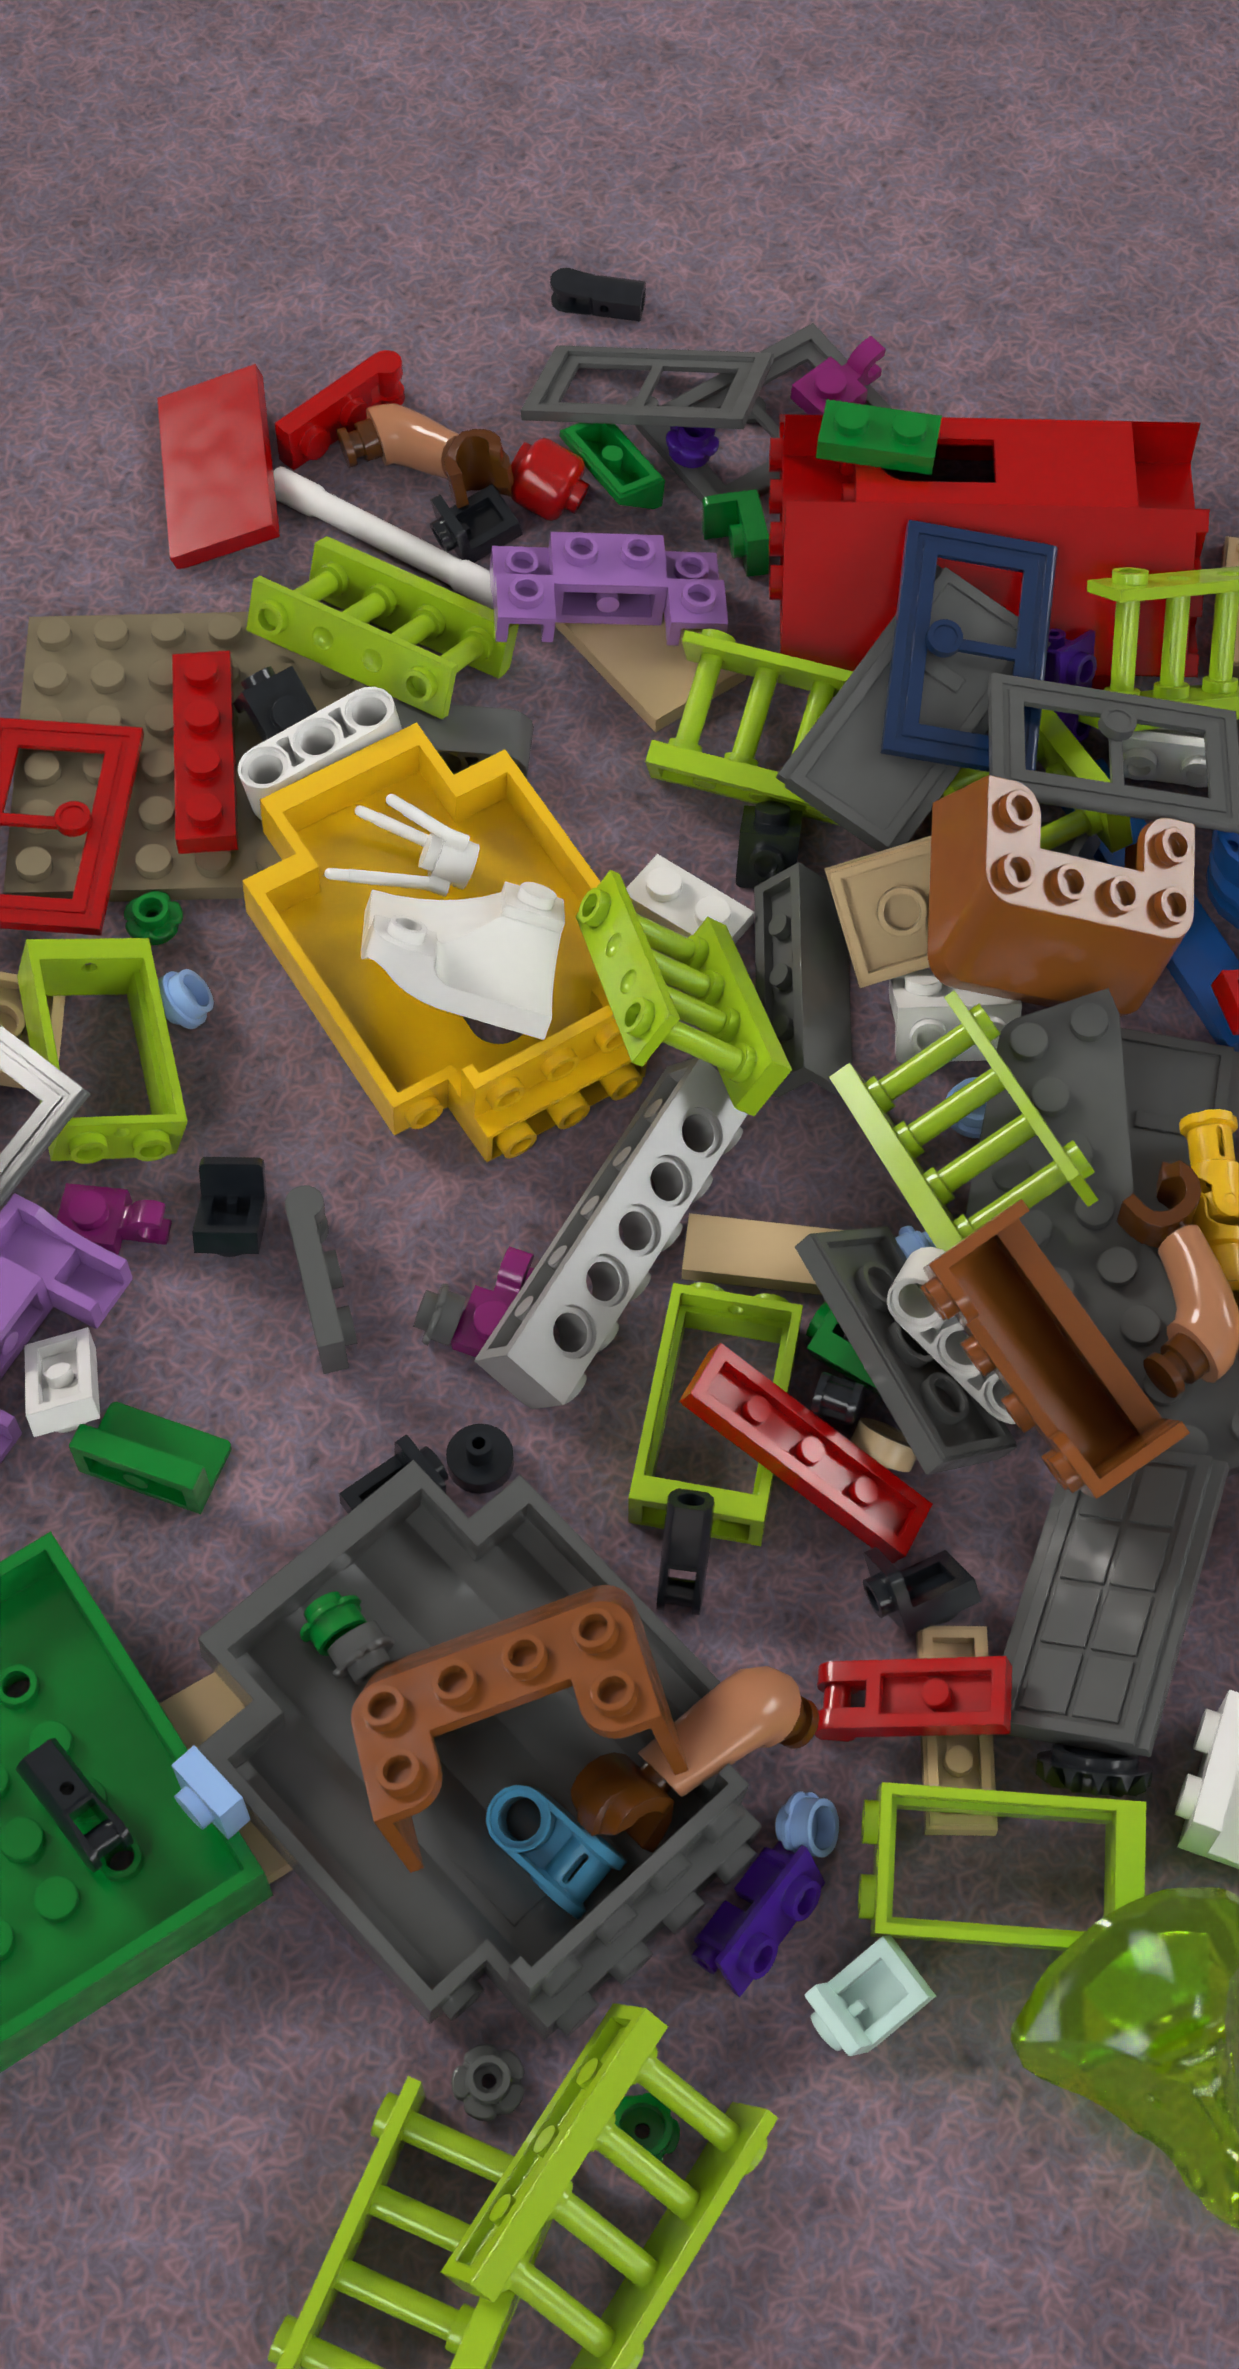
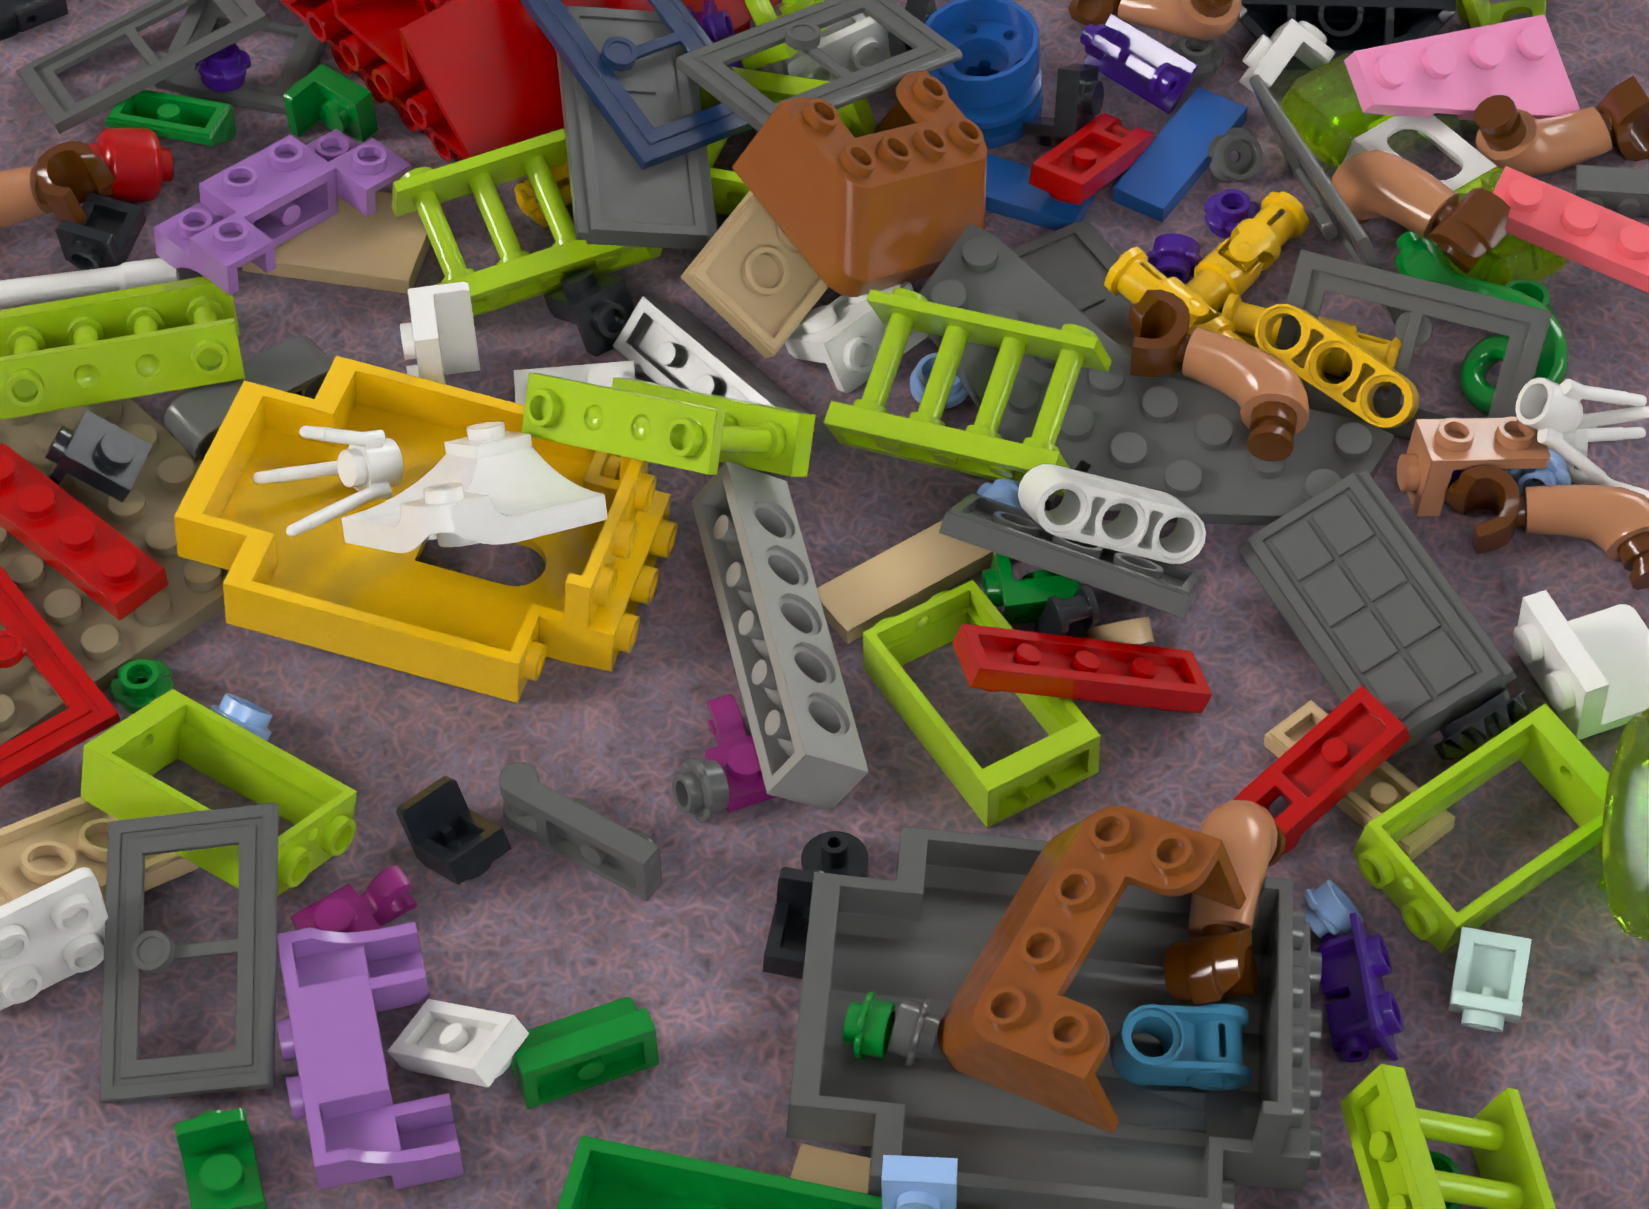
camera: 40 degrees left, 10 degrees down
(317, 742) = (172, 457): white beam -> none
(601, 786) = (440, 332): none -> white bracket
(685, 1548) = (1056, 784): black bar -> none
(920, 1594) = (1246, 707): black bracket -> none
(1047, 1356) = (1197, 475): dark orange windscreen -> none

